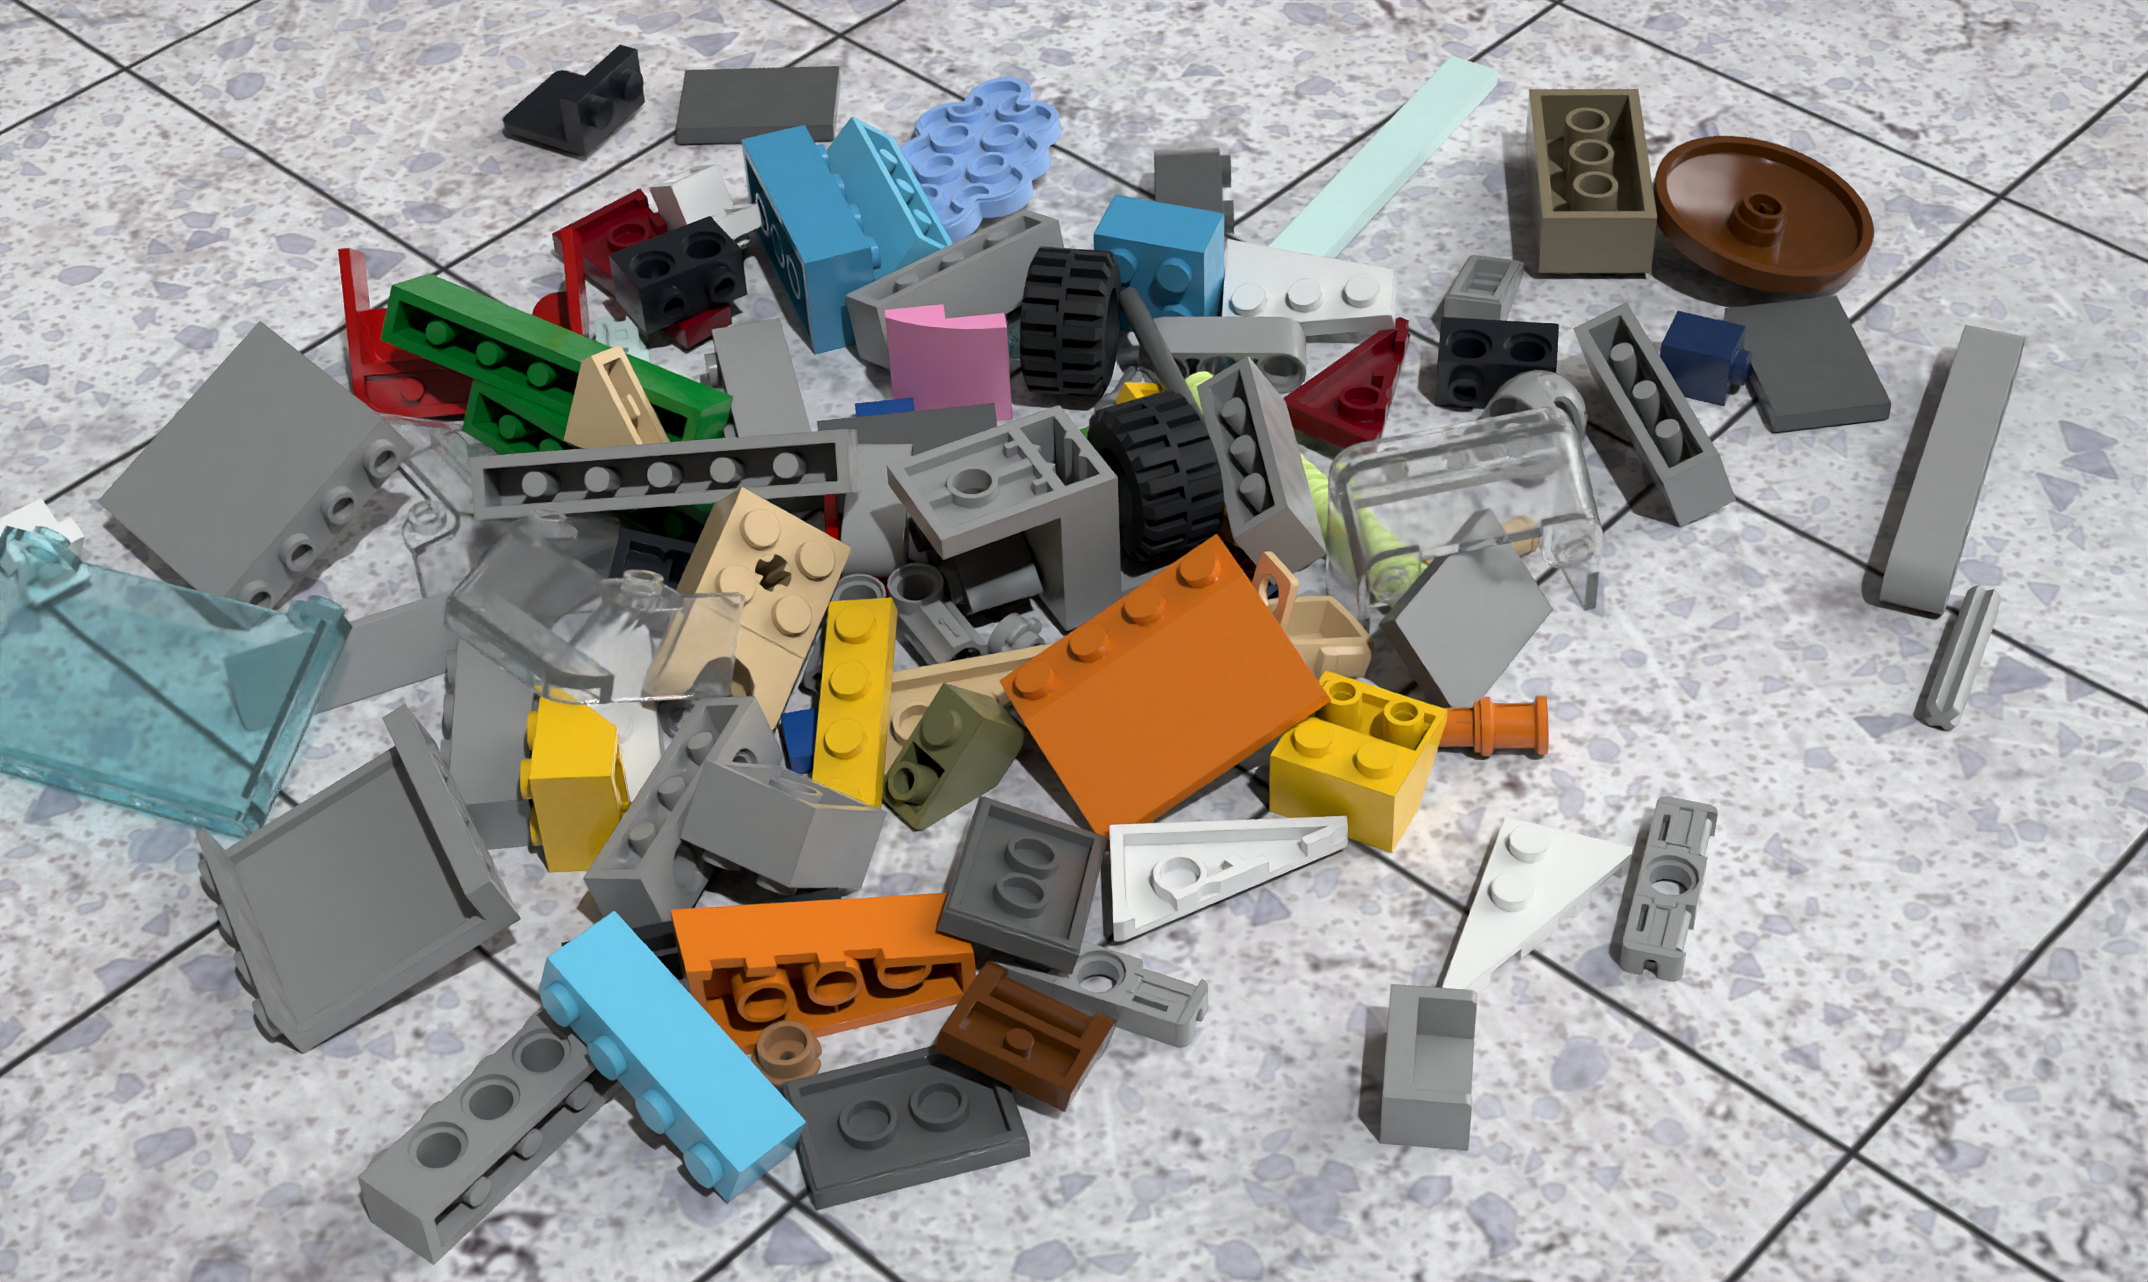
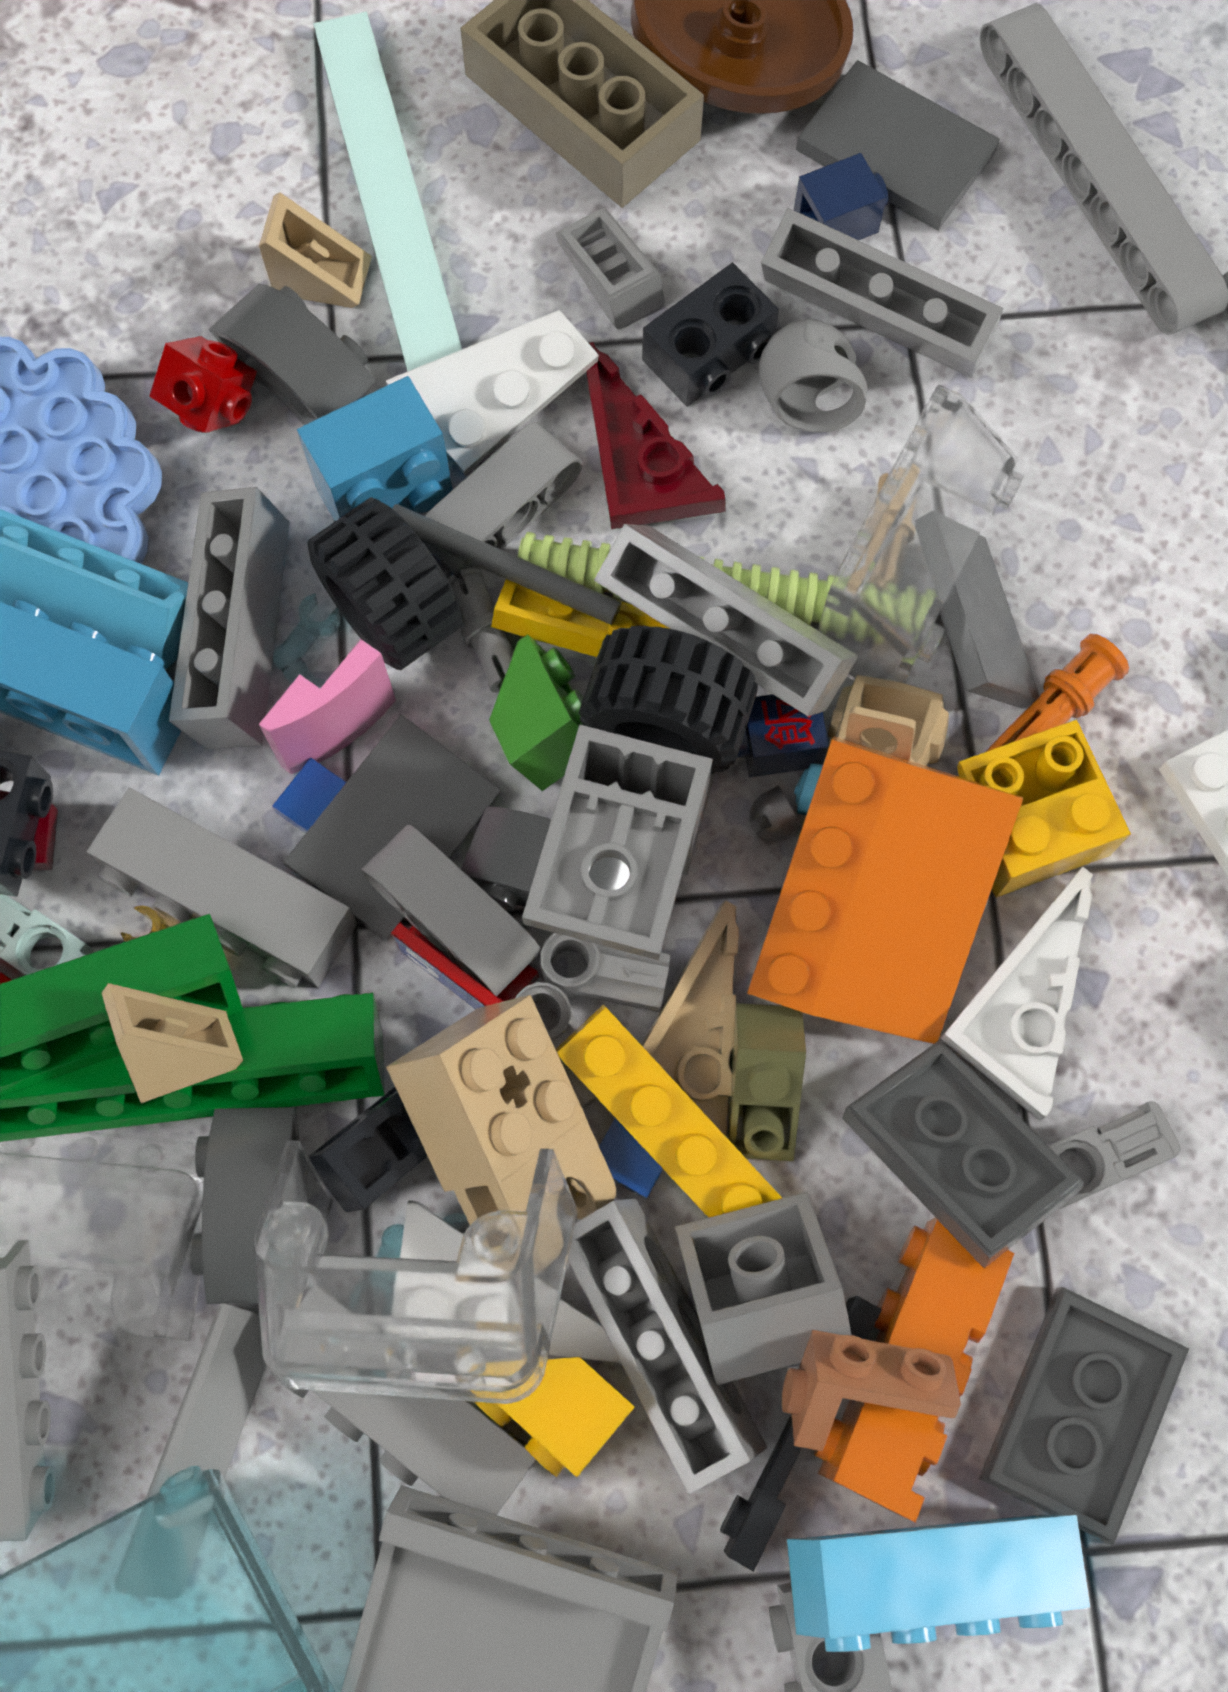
camera: 50 degrees left, 30 degrees up
(665, 473) = (304, 1079): light grey brick -> none
(760, 861) = (864, 1372): none -> nougat bracket
(783, 1042) = (976, 1454): medium nougat plate -> none
(1015, 633) = (682, 928): light grey plate -> none
(1024, 1037) = (1116, 1293): reddish brown plate -> none
(1109, 167) = (203, 384): none -> red brick
(1272, 157) = (311, 256): none -> tan slope

